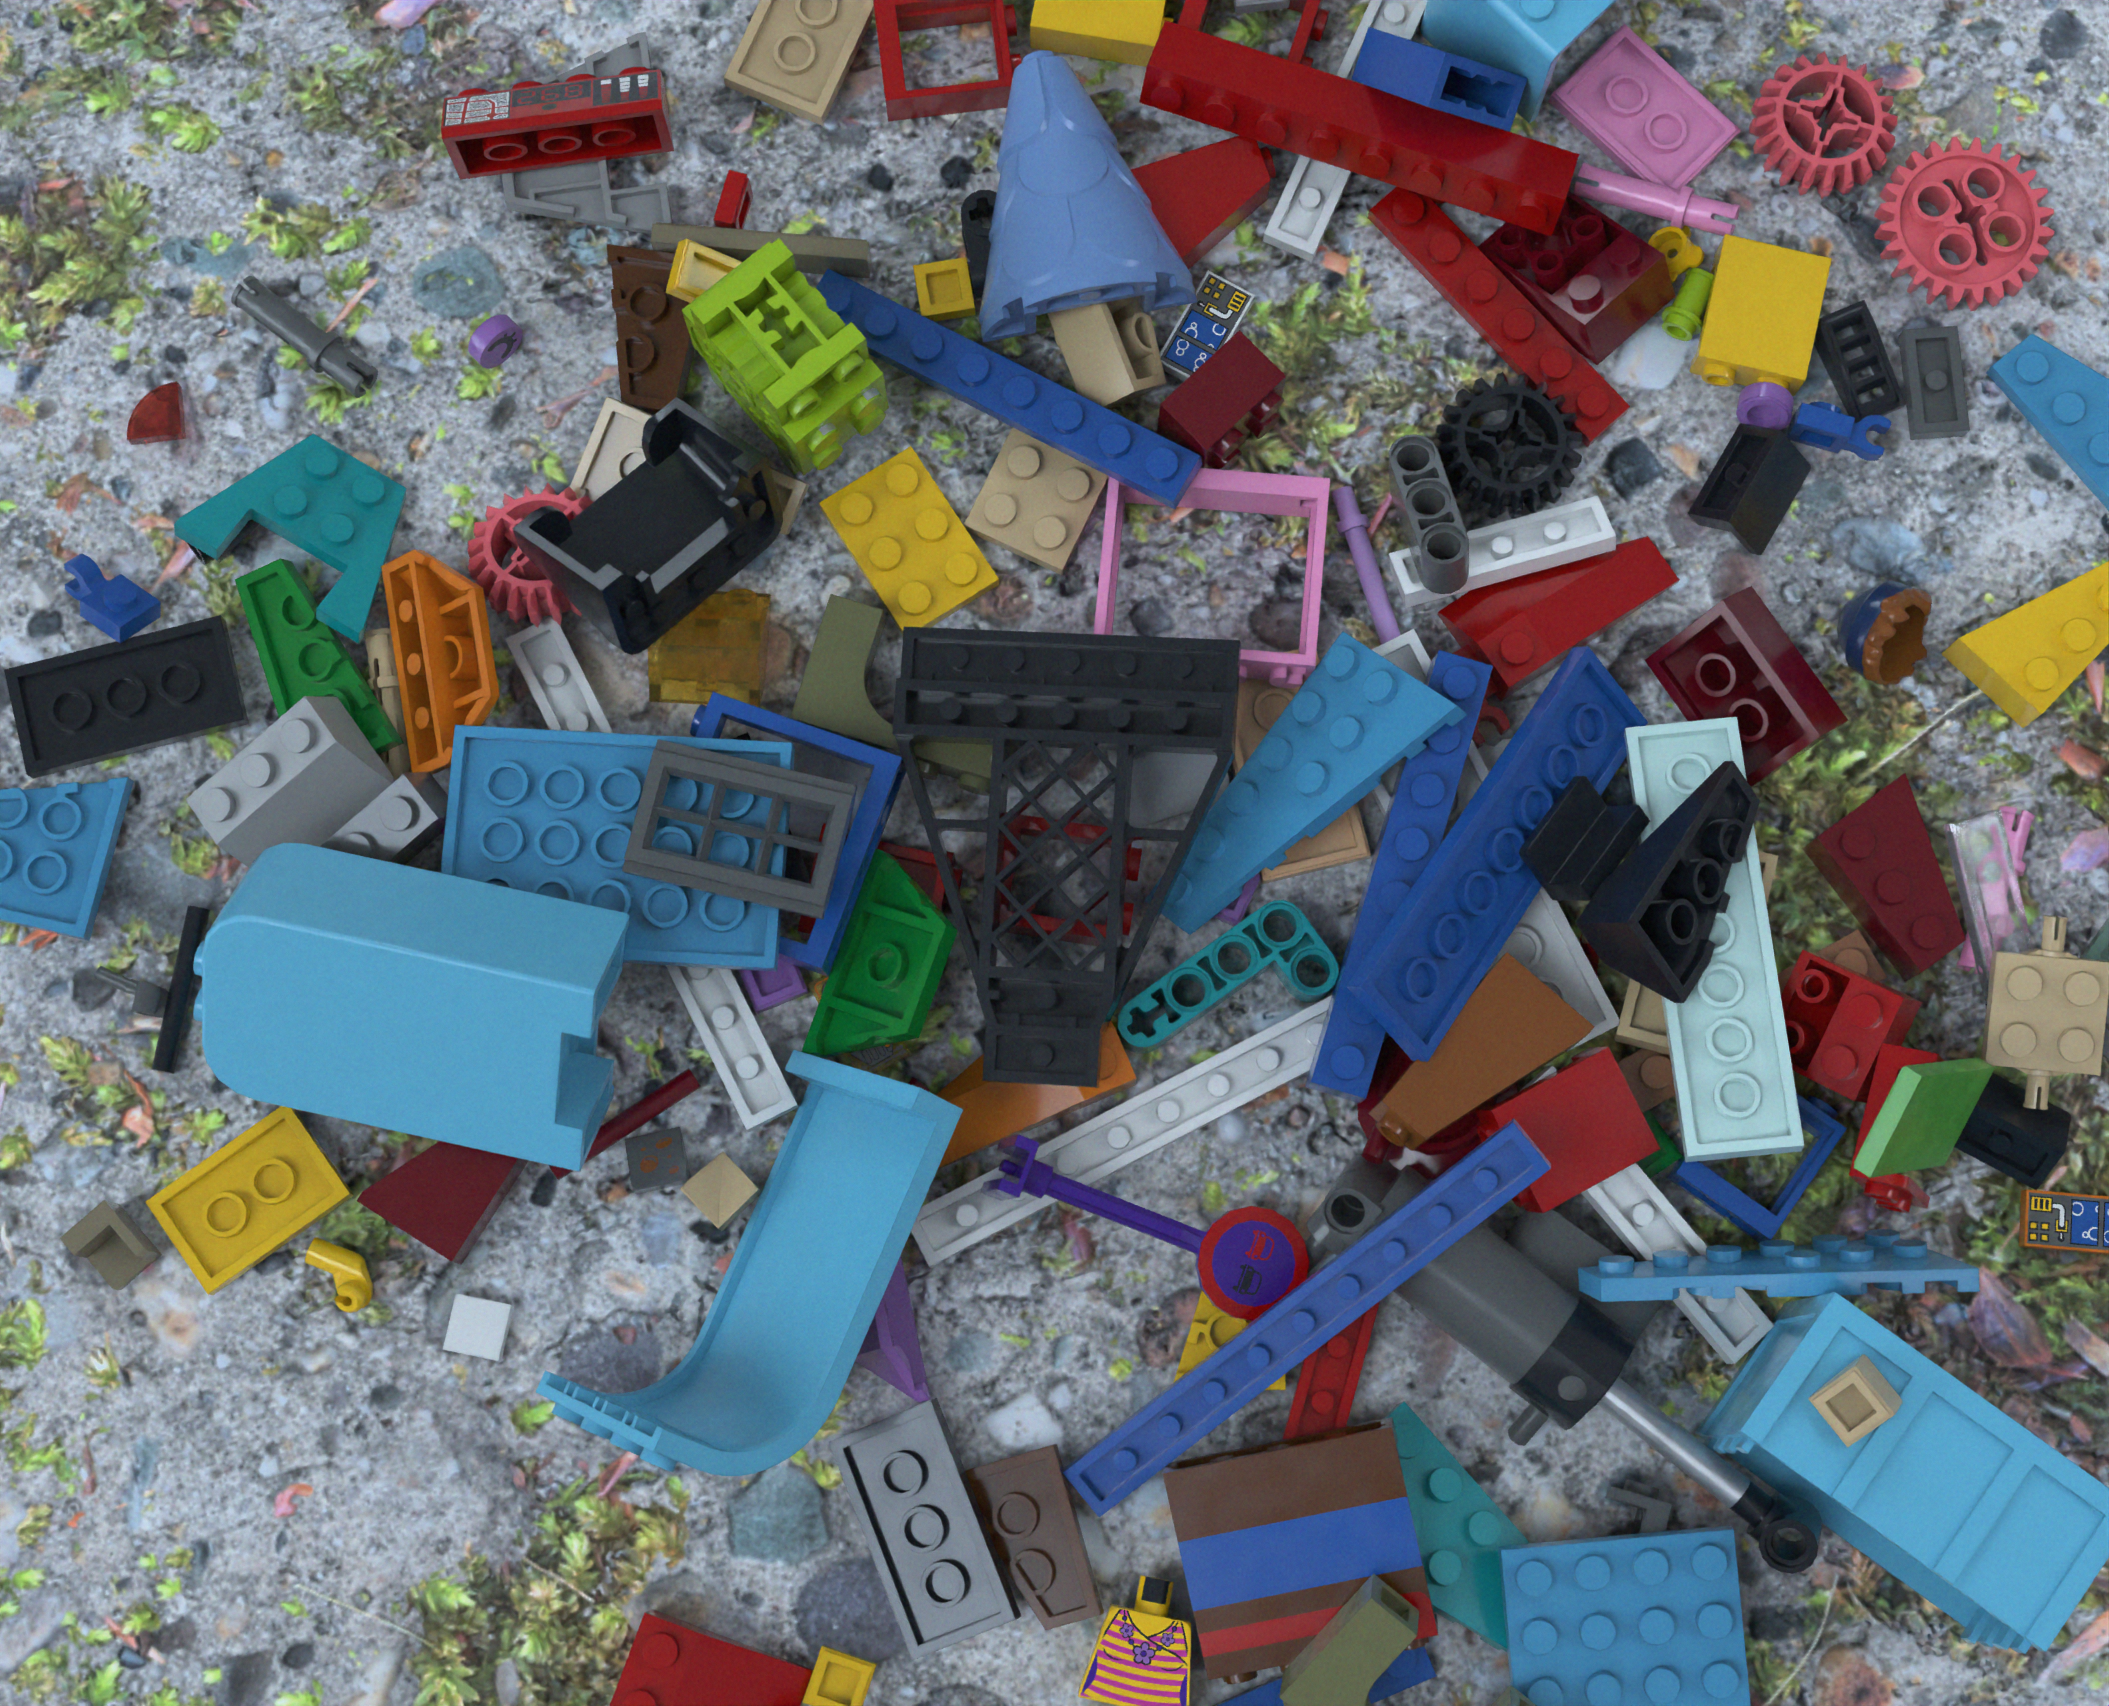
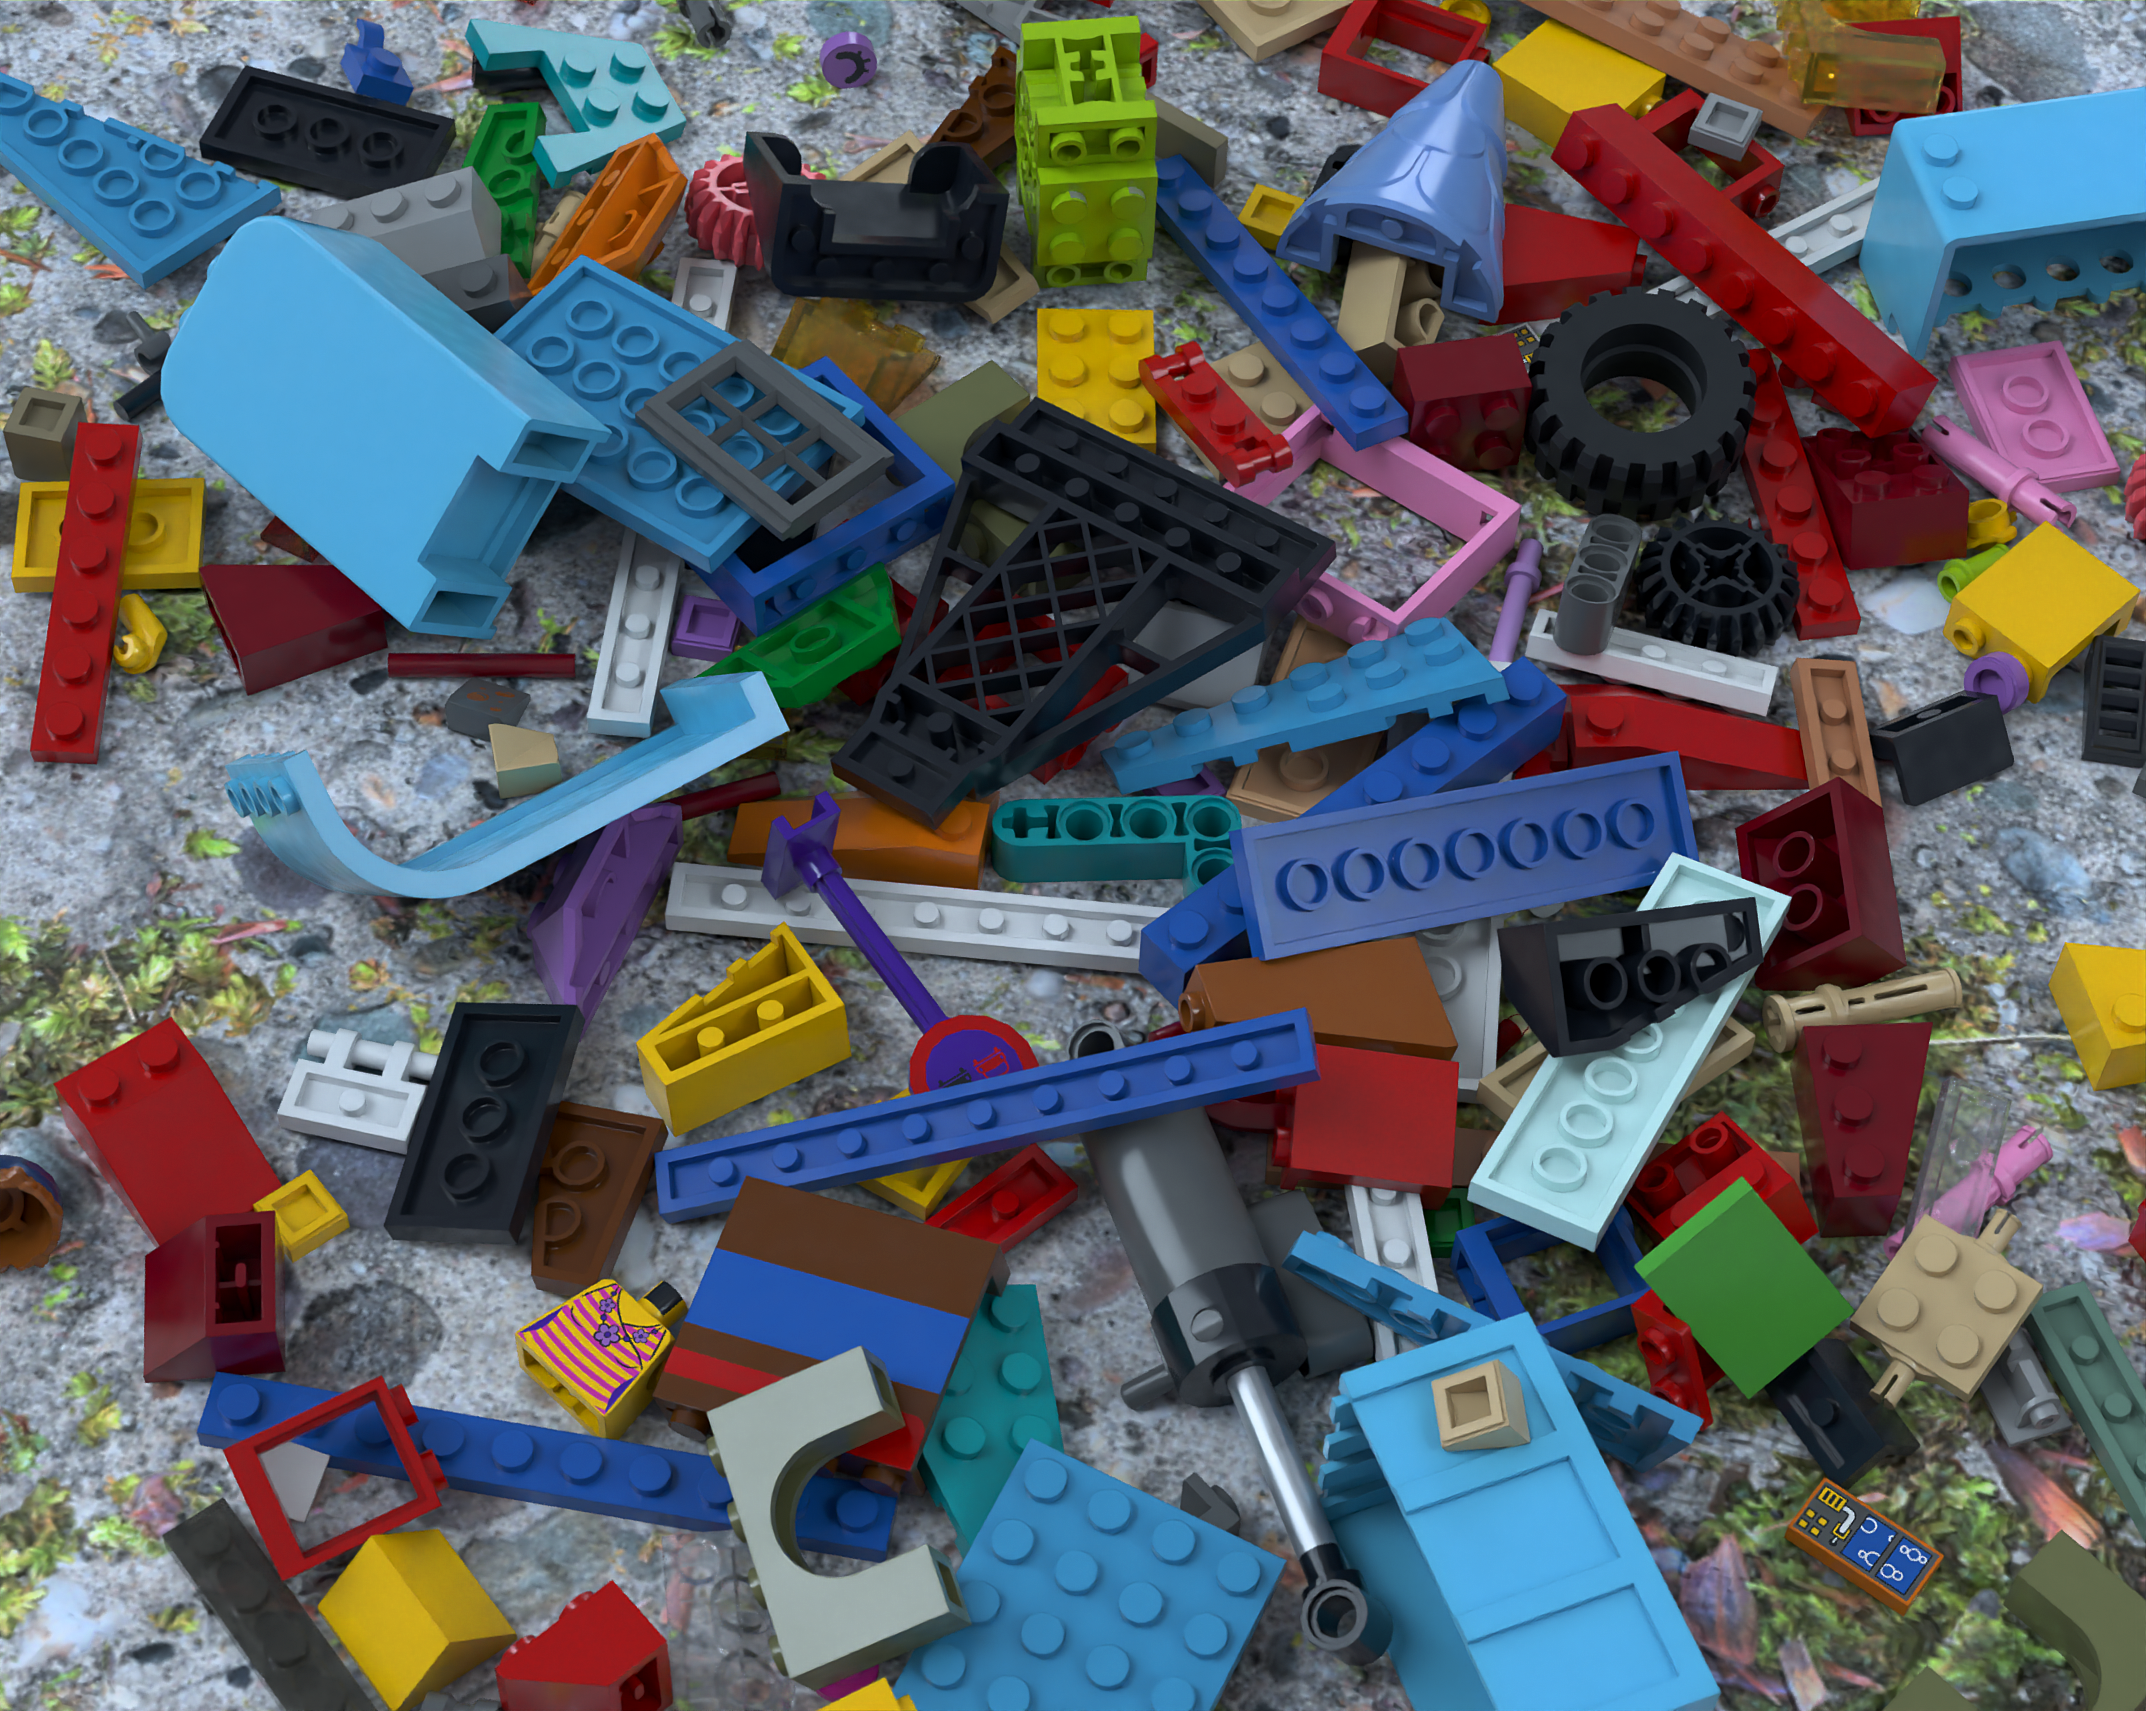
camera: 30 degrees right, 25 degrees down
(132, 1145) = (43, 434): none -> dark tan panel
(280, 1270) = (86, 594): none -> red plate
(478, 1327) = (217, 741): white tile -> none
(815, 1573) = (353, 1104): none -> white plate
(1043, 543) = (1214, 415): none -> red plate
(1063, 1335) = (744, 1038): none -> yellow wedge
(1415, 274) = (1649, 340): none -> black tyre
(1439, 79) = (1846, 252): blue brick -> none
(1580, 841) = (1551, 889): black panel -> none
(1676, 535) = (1833, 724): none -> nougat plate
(1813, 788) = (1860, 1005): none -> tan pin
(1827, 429) = (2049, 736): blue plate -> none
(1884, 631) = (1997, 915): dark orange hair -> none

